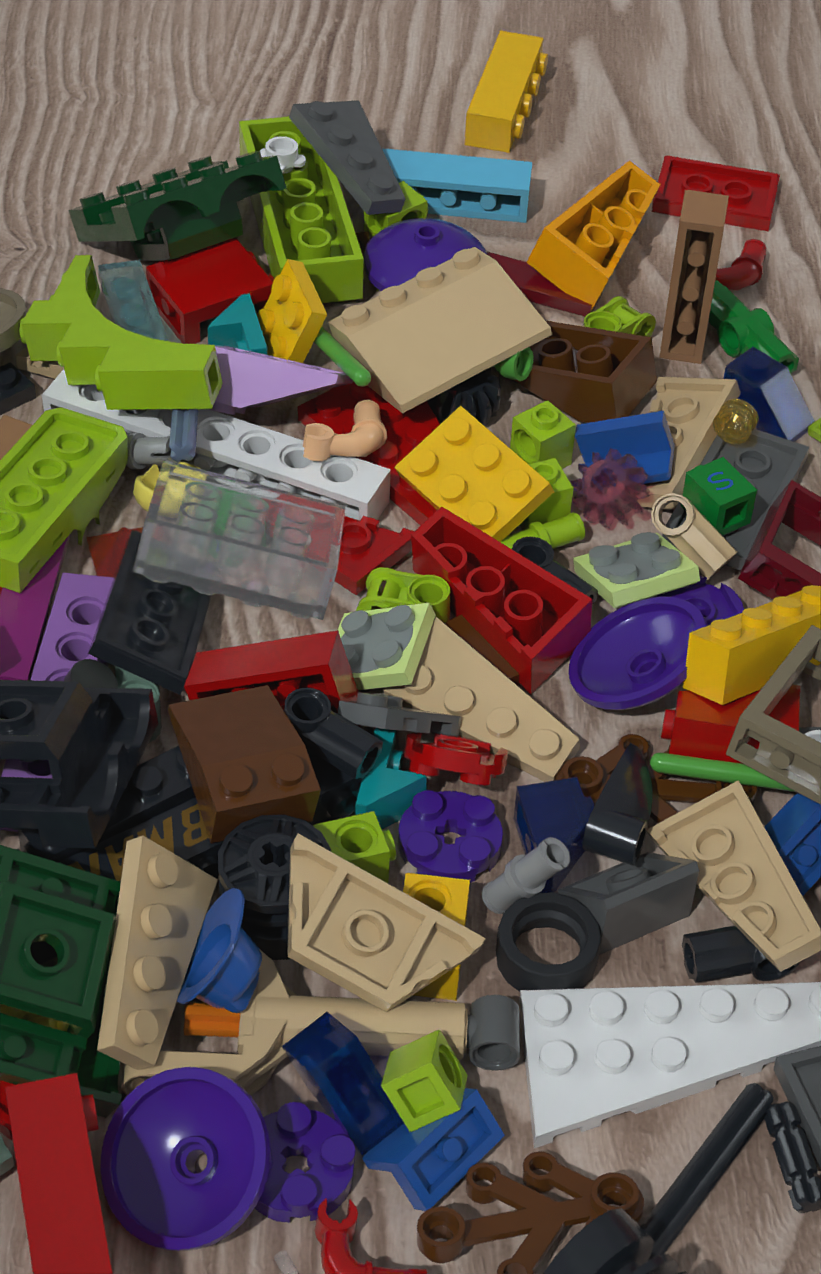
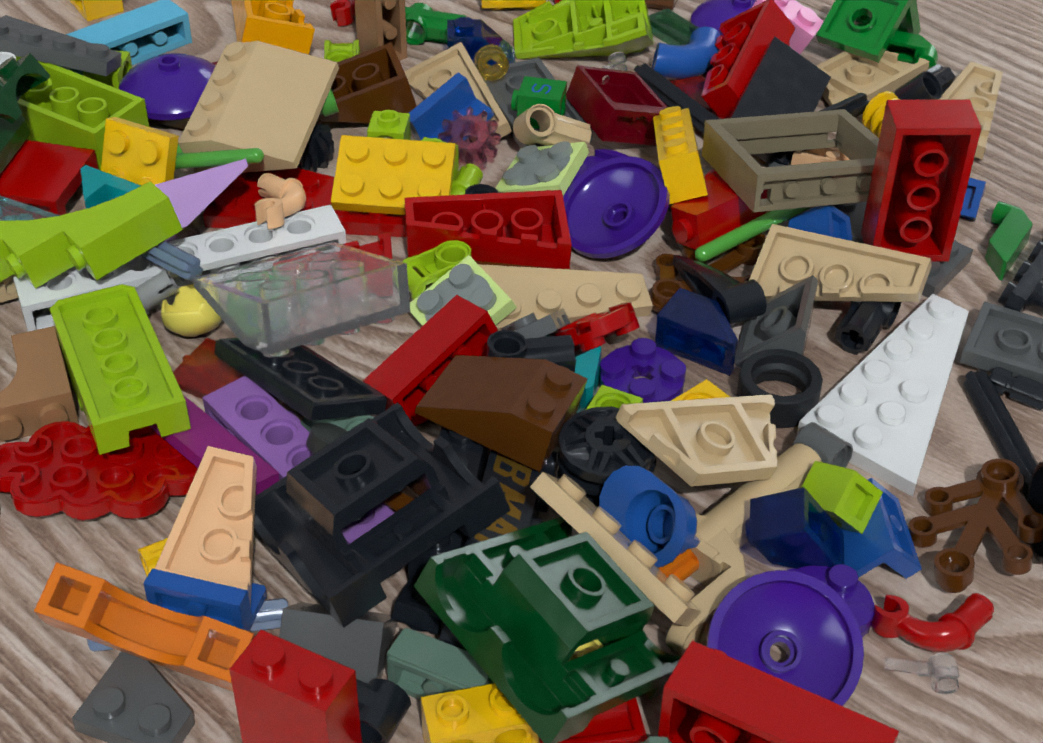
camera: 45 degrees left, 5 degrees down
(525, 875) = (733, 351): light grey pin -> none

